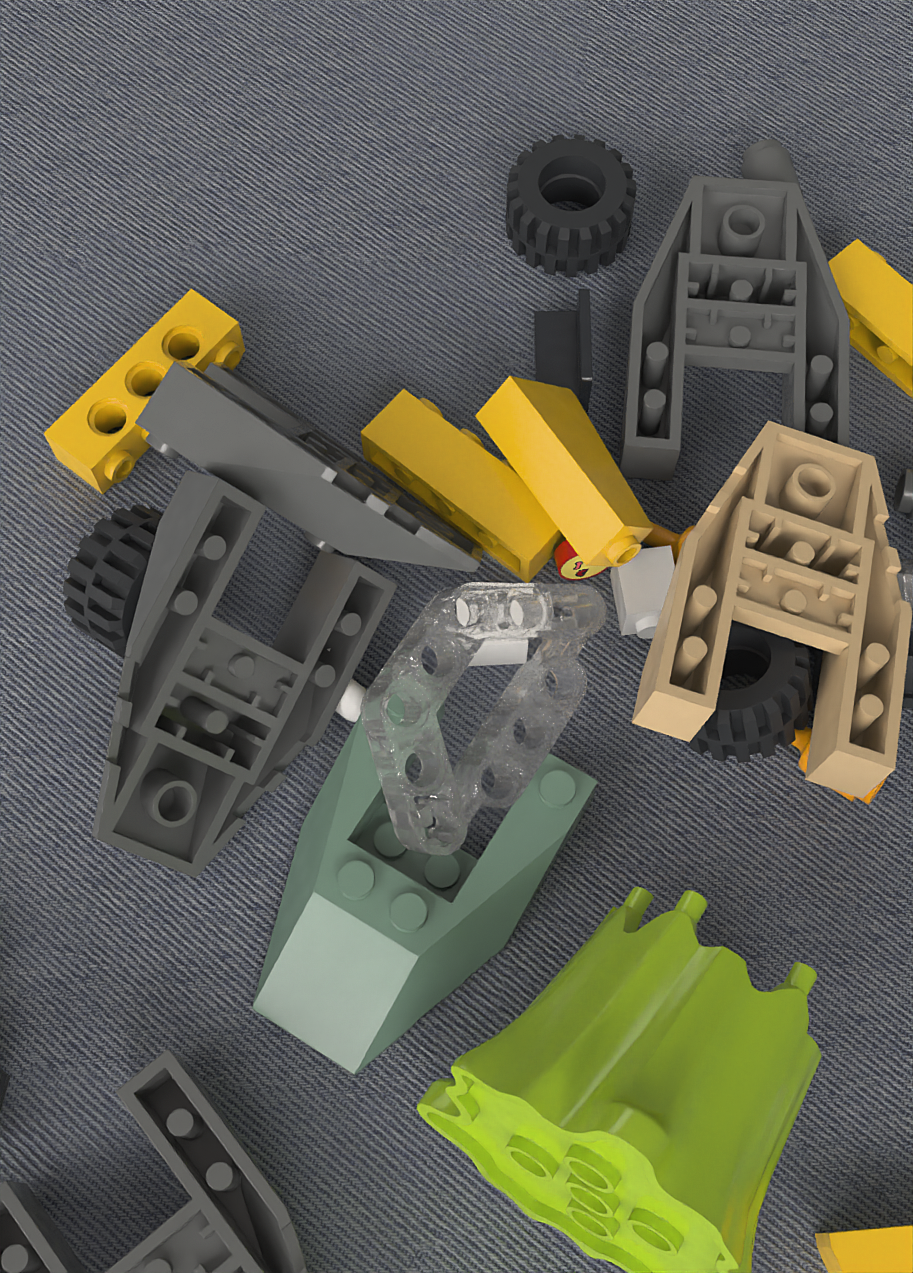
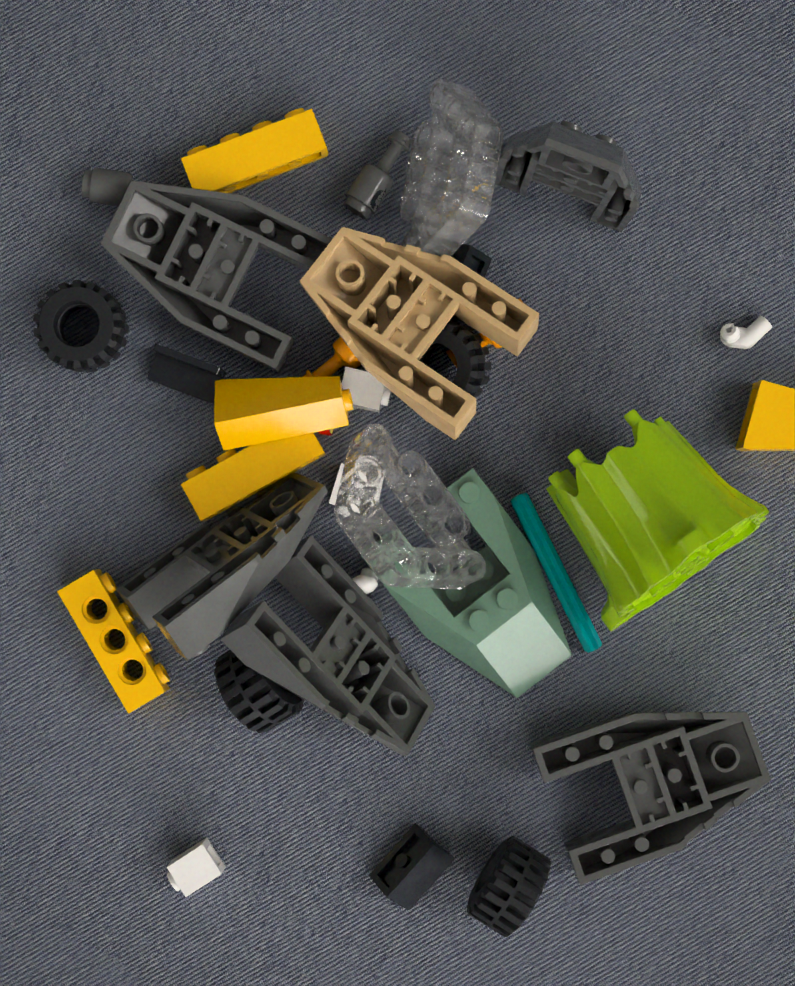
camera: 70 degrees left, 20 degrees up
(479, 997) = (556, 572): none -> teal axle

